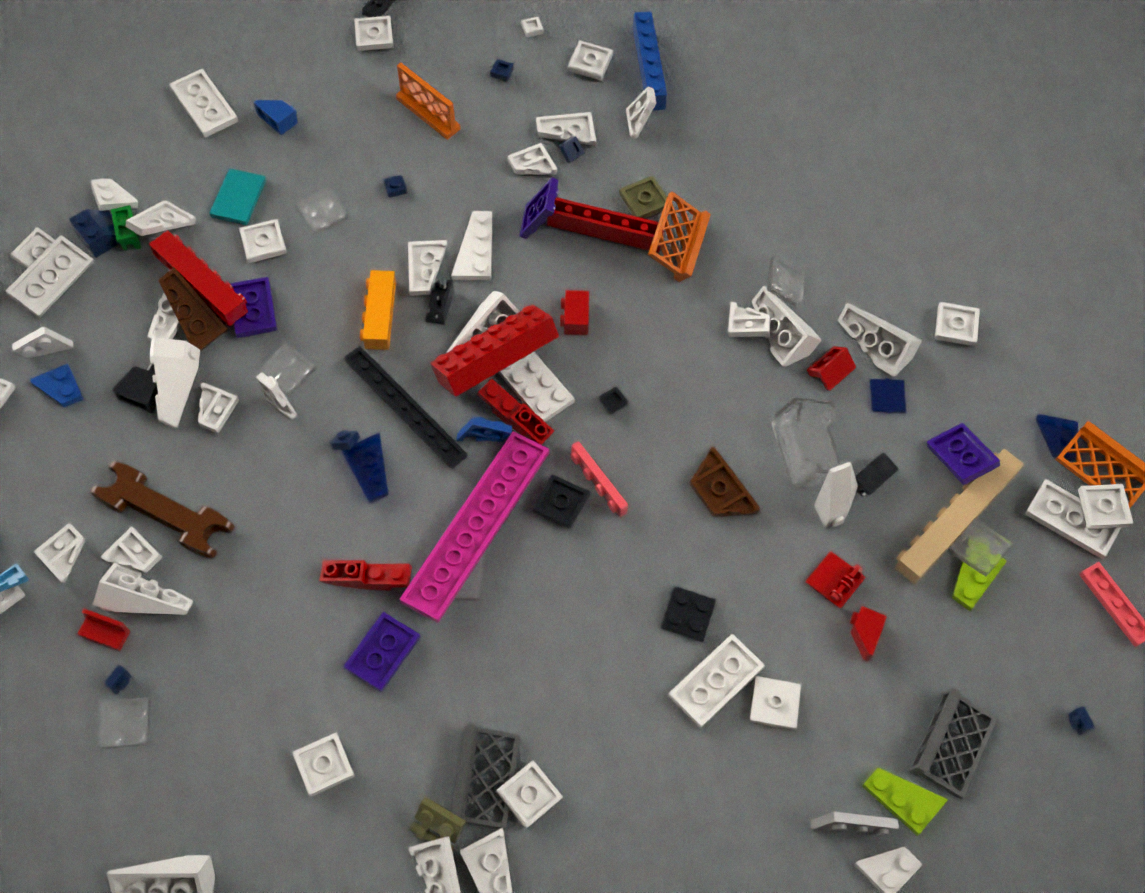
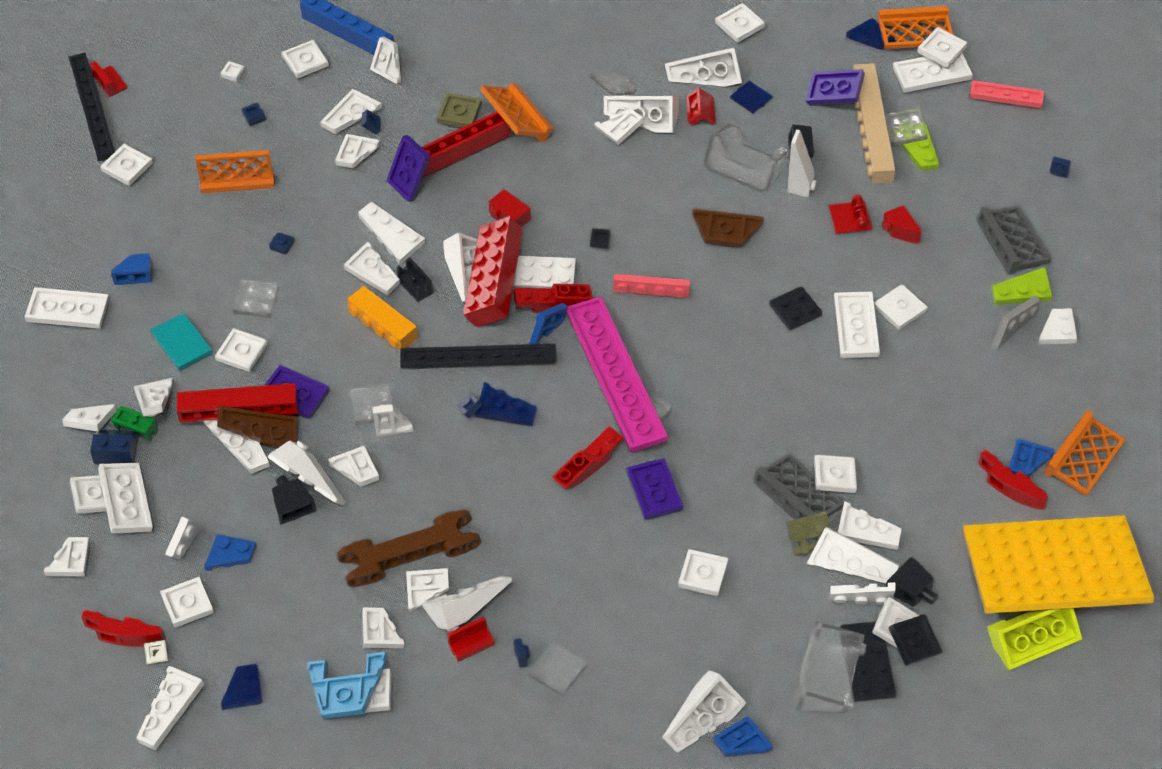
camera: 45 degrees left, 10 degrees down
(561, 501) = (645, 318): black plate -> none

